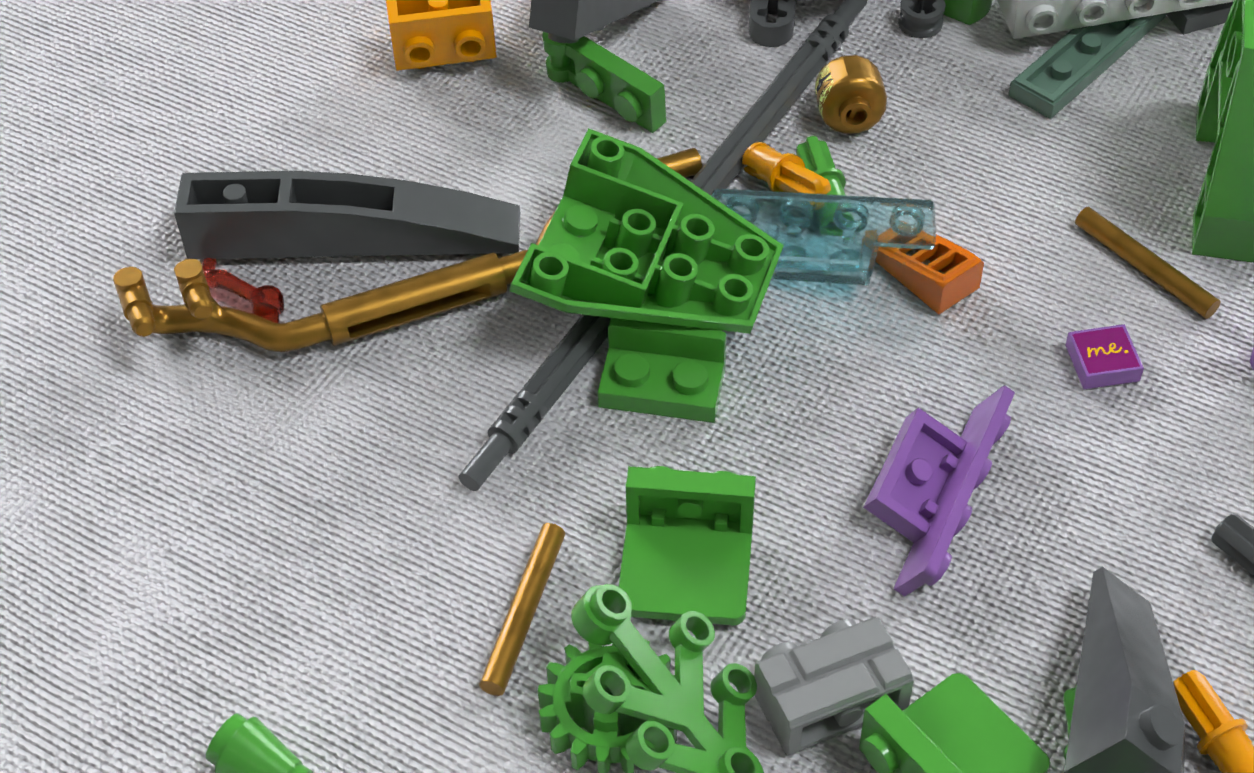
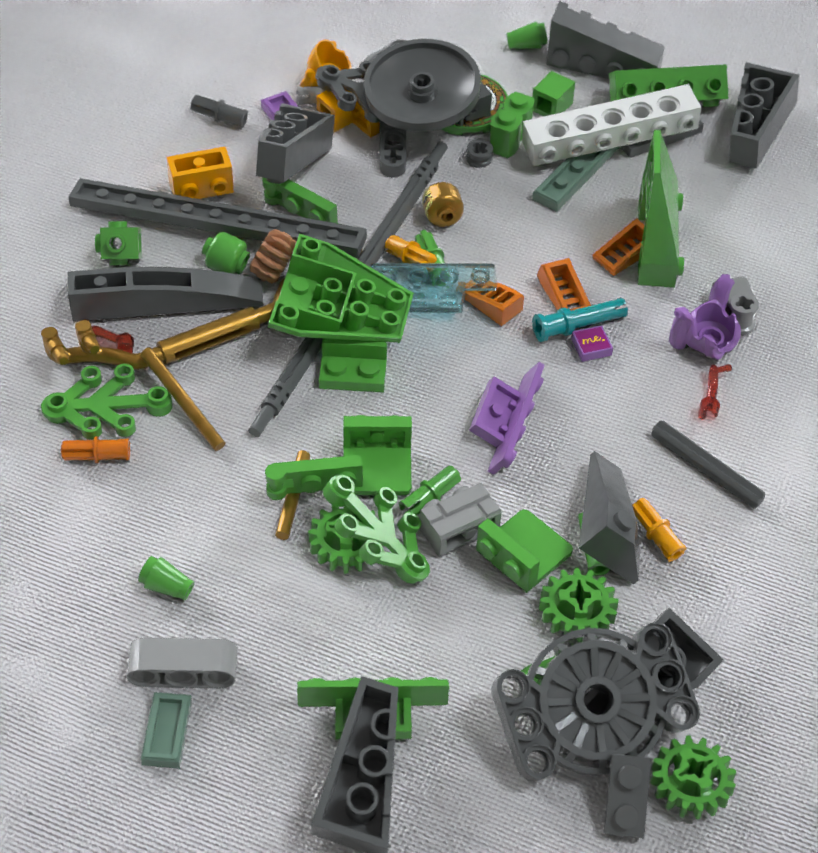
camera: 10 degrees left, 0 degrees up
(138, 410) = (65, 406): none -> bright green plant
(181, 495) = (96, 449): none -> orange axle
(304, 130) = (130, 238): none -> bright green brick
(349, 413) = (183, 399): none -> pearl gold bar
(458, 95) = (210, 215): none -> dark grey plate
(465, 158) = (226, 253): none -> bright green head
(541, 166) = (273, 256): none -> nougat gear
(556, 576) = (310, 475): none -> bright green plate
(781, 621) = (431, 490): none -> bright green axle
(1059, 312) = (567, 321): none -> teal pin
(1062, 220) = (564, 269): none -> orange slope
(1148, 262) = (613, 290): pearl gold bar -> none
(1189, 157) = (625, 236): none -> orange slope

